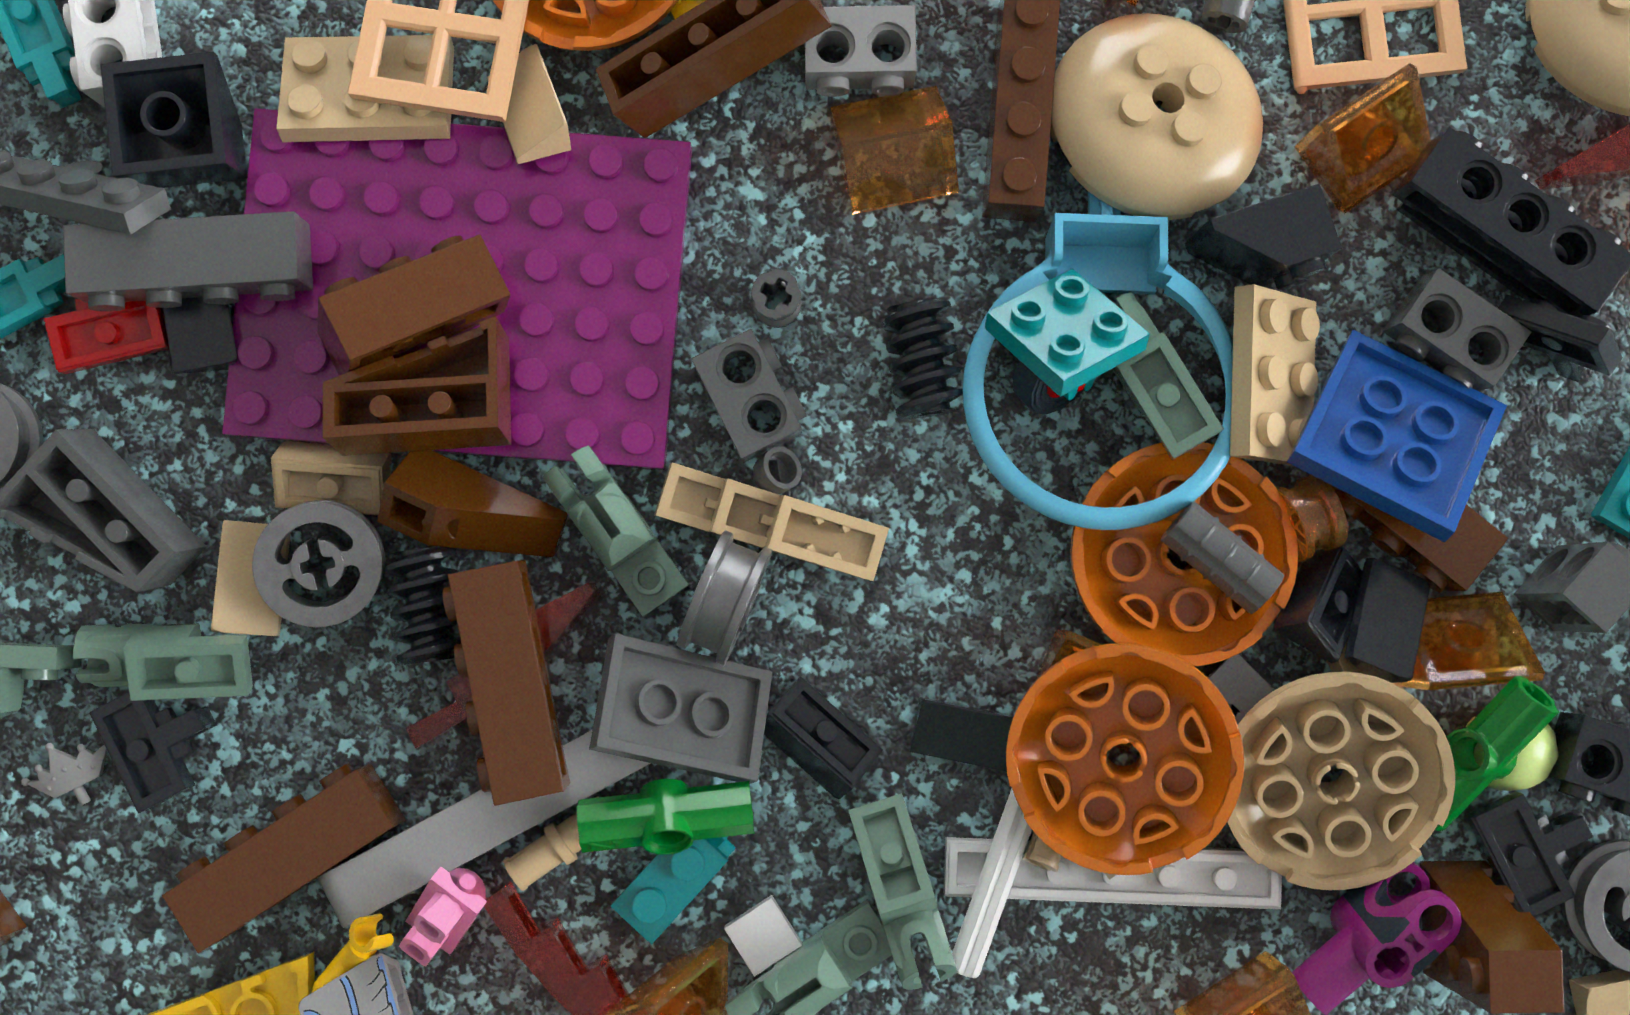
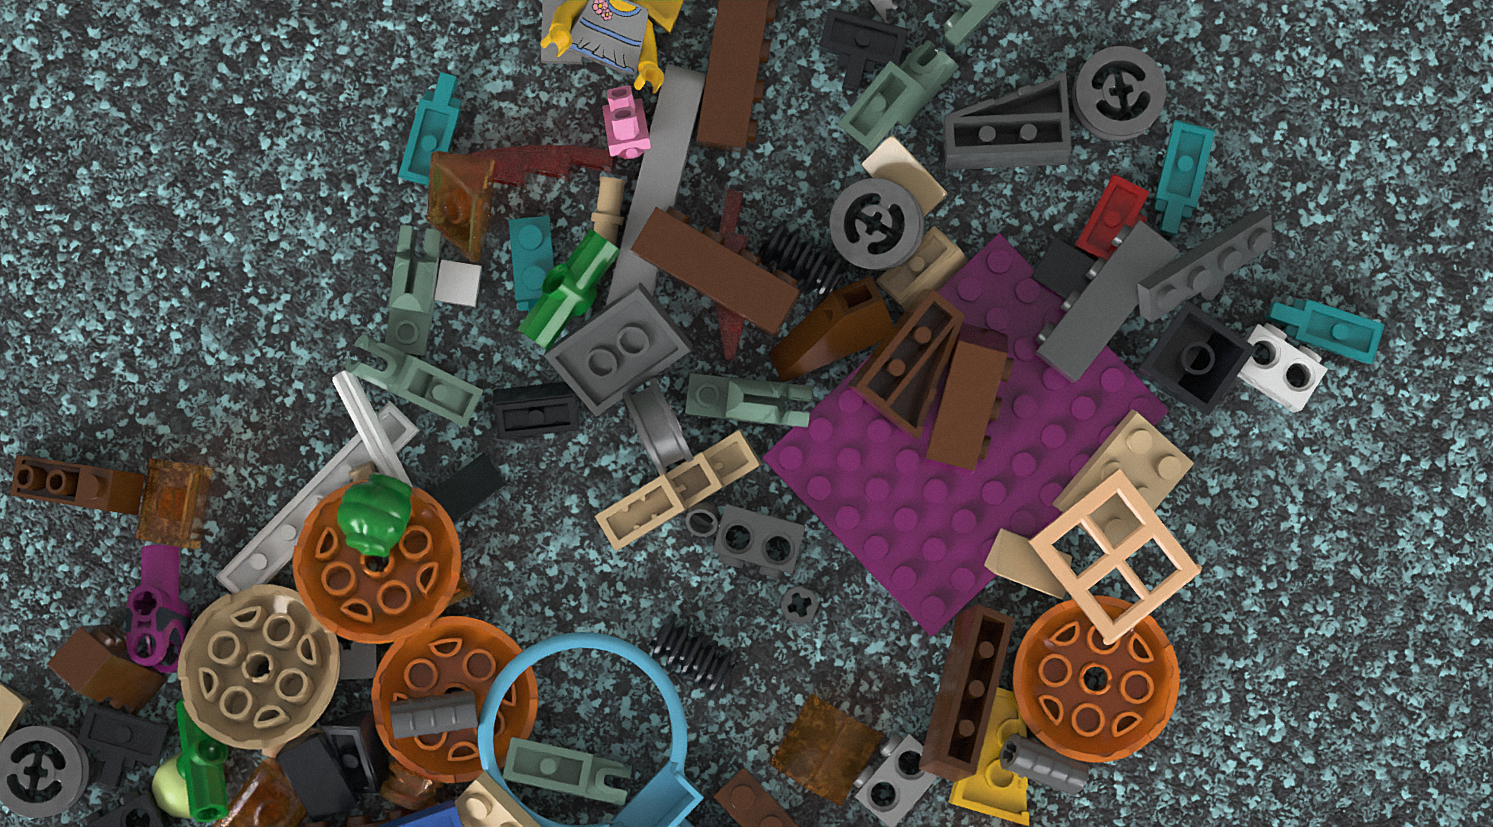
camera: 135 degrees right, 0 degrees up
(1063, 339) = (631, 738): teal plate -> none
(1081, 805) = (375, 514): none -> green hair

